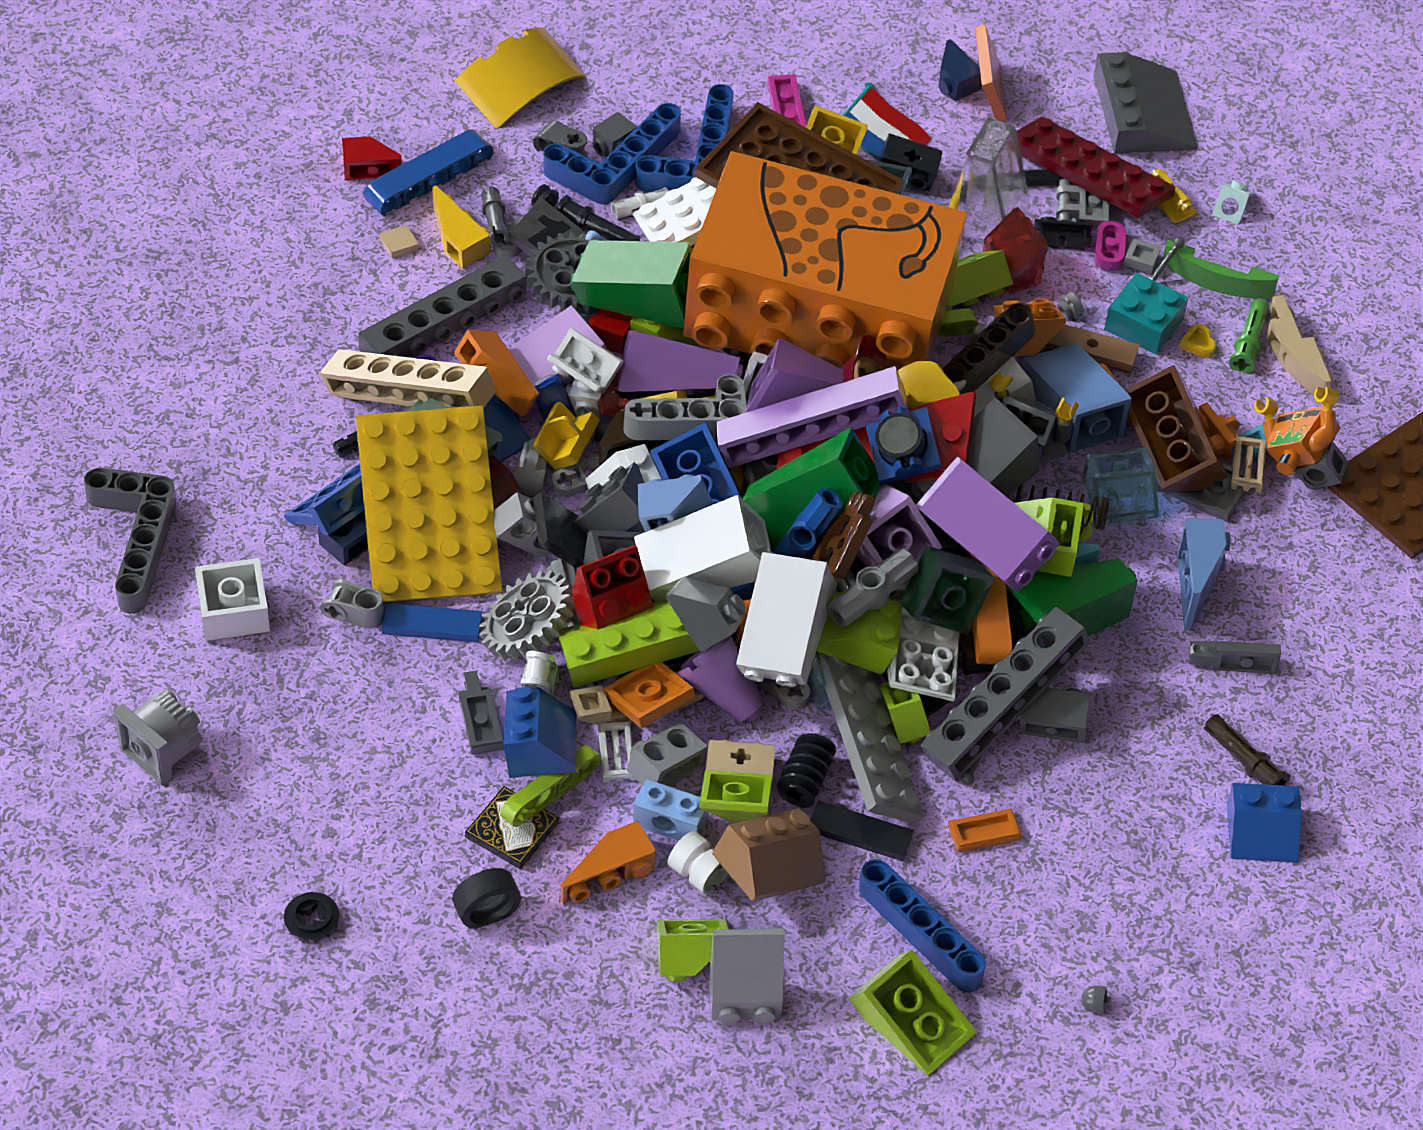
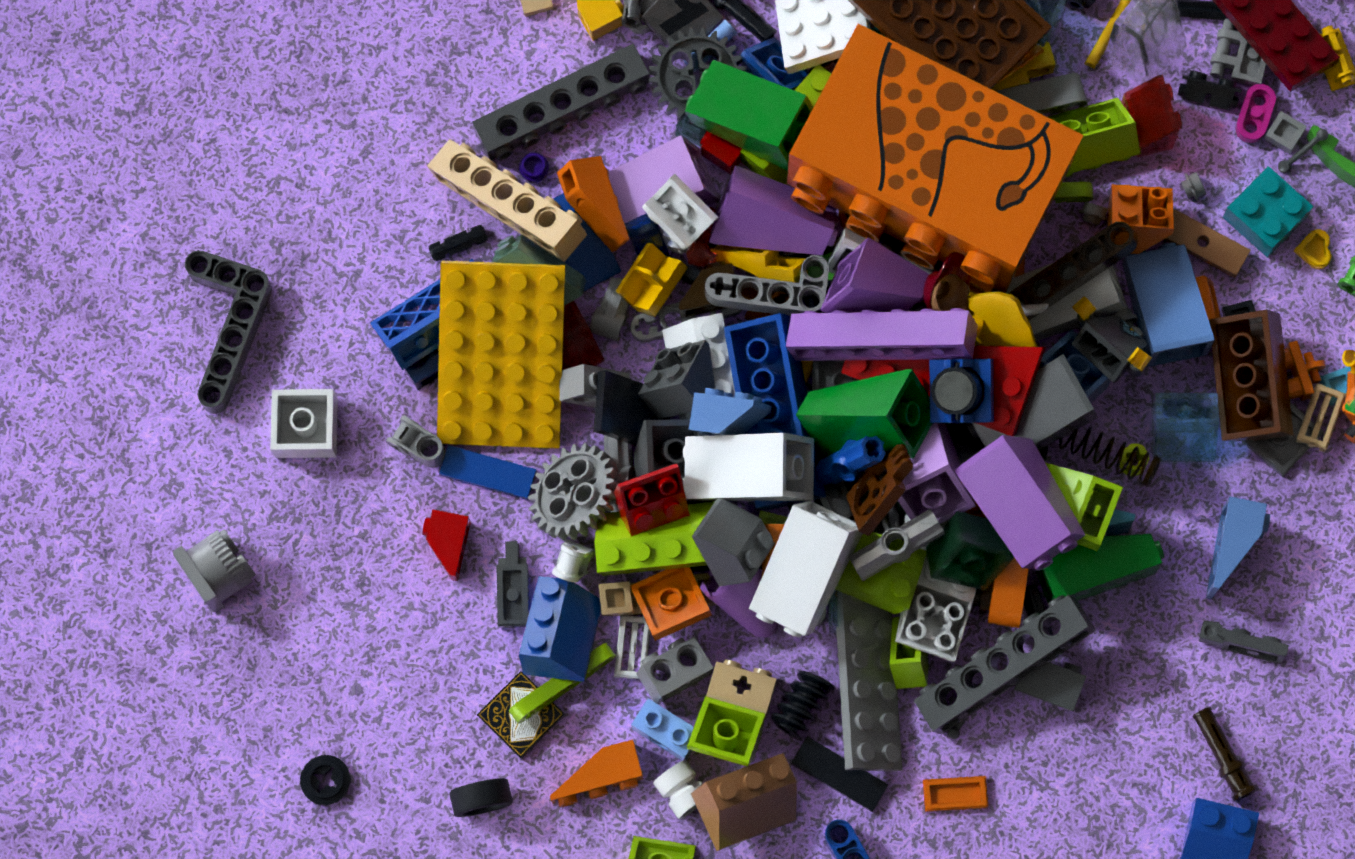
camera: 20 degrees right, 25 degrees up
(401, 680) = (447, 538): none -> red slope

